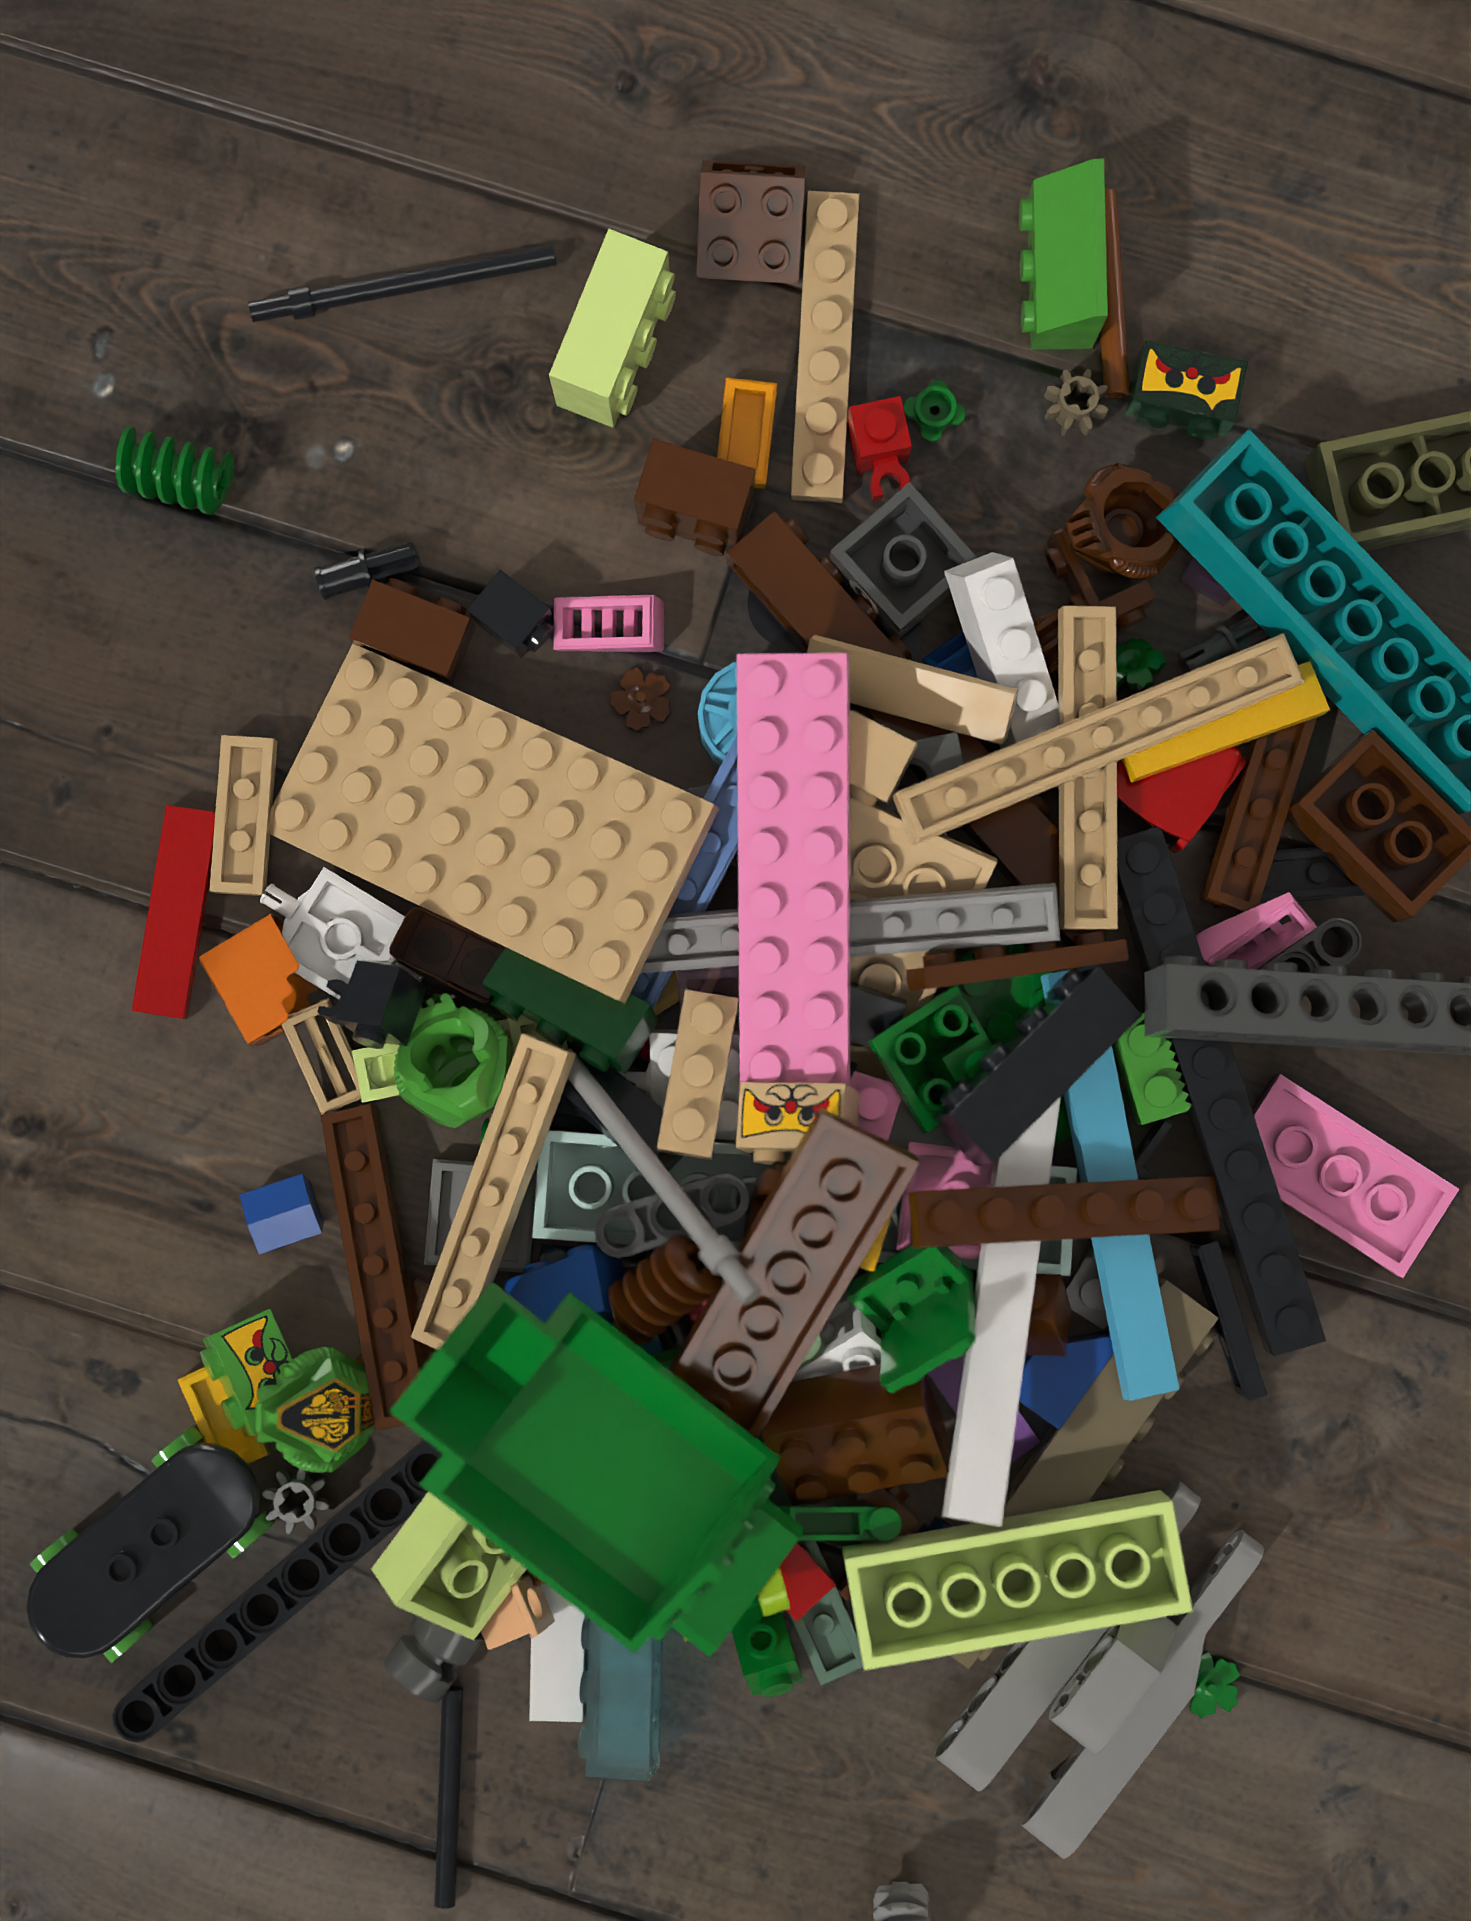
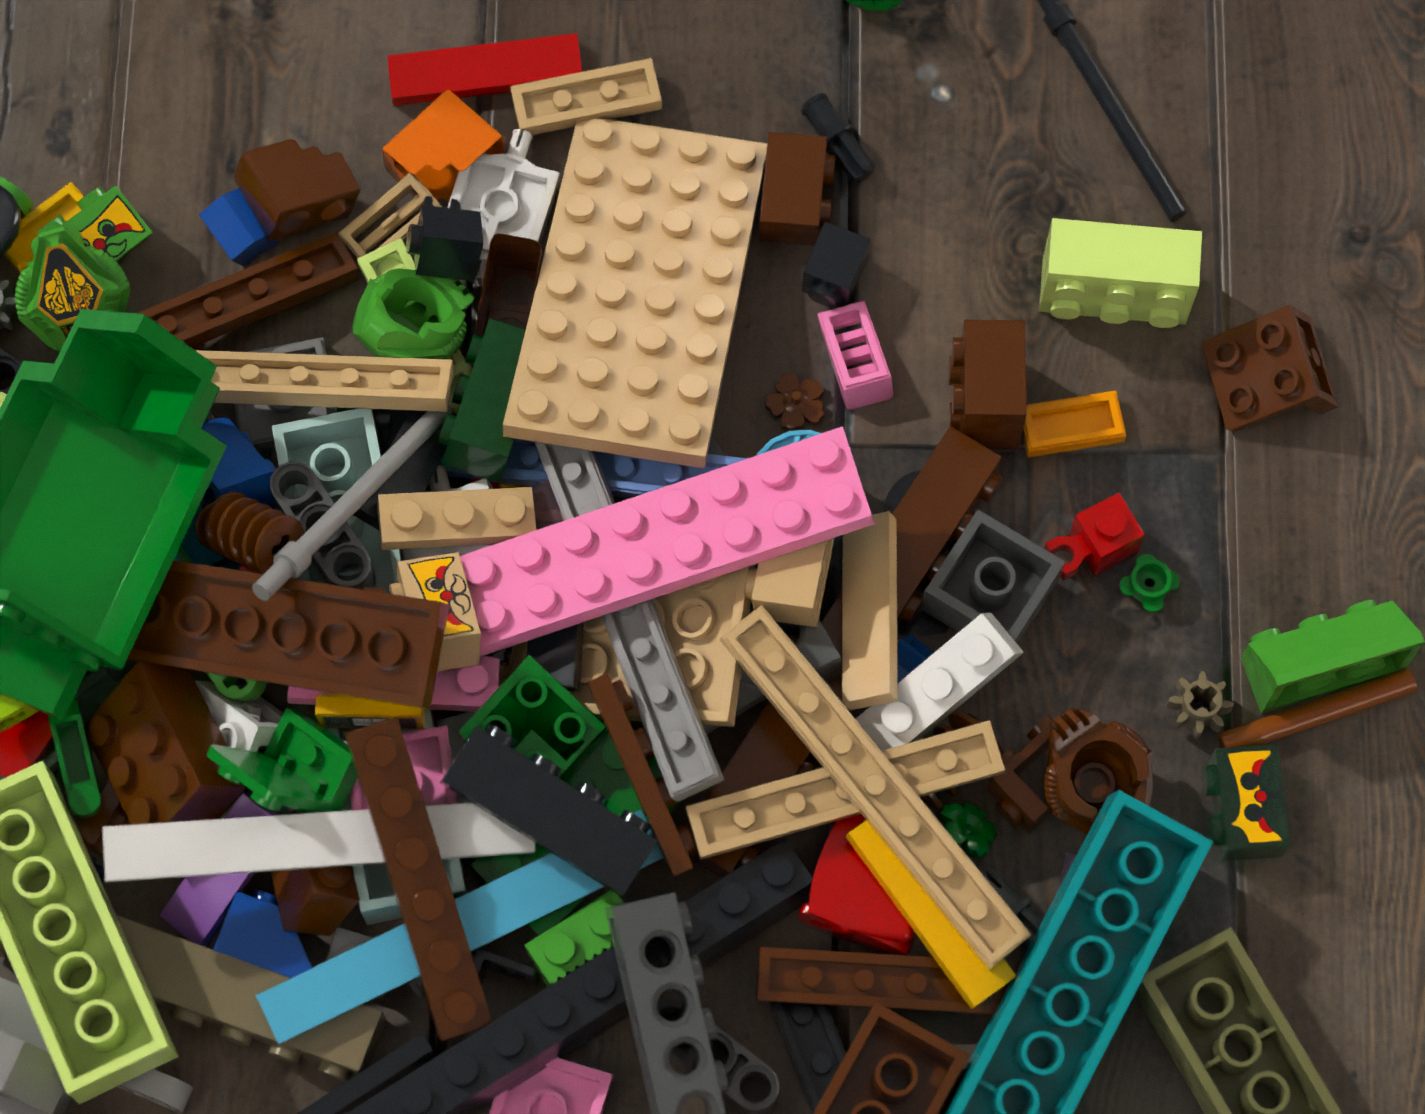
camera: 75 degrees right, 15 degrees down
(263, 1146) = (295, 187): none -> reddish brown piece
(824, 347) = (1178, 469): tan plate -> none
(1242, 936) = (726, 975): bright pink slope -> none

